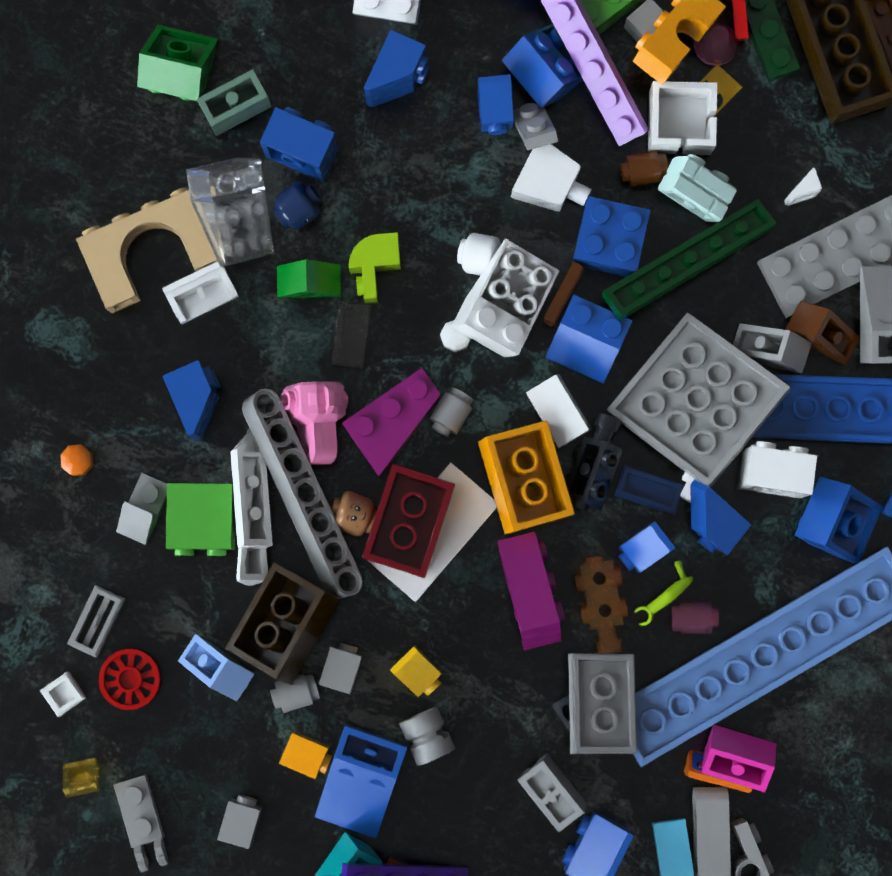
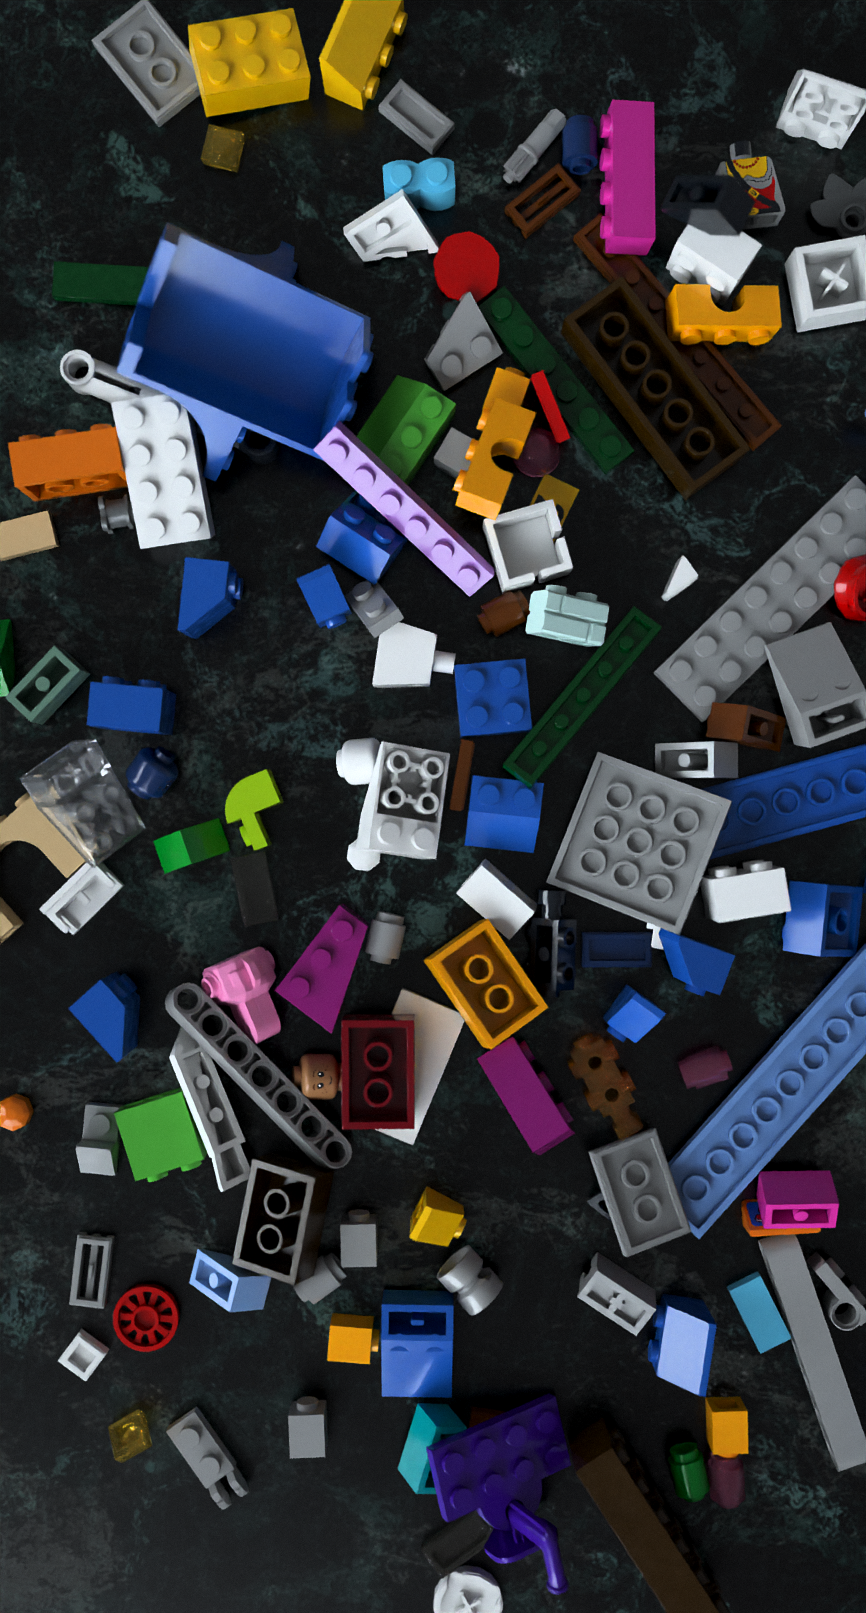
camera: 20 degrees left, 5 degrees up
(668, 595) = (671, 1054): lime piece -> none

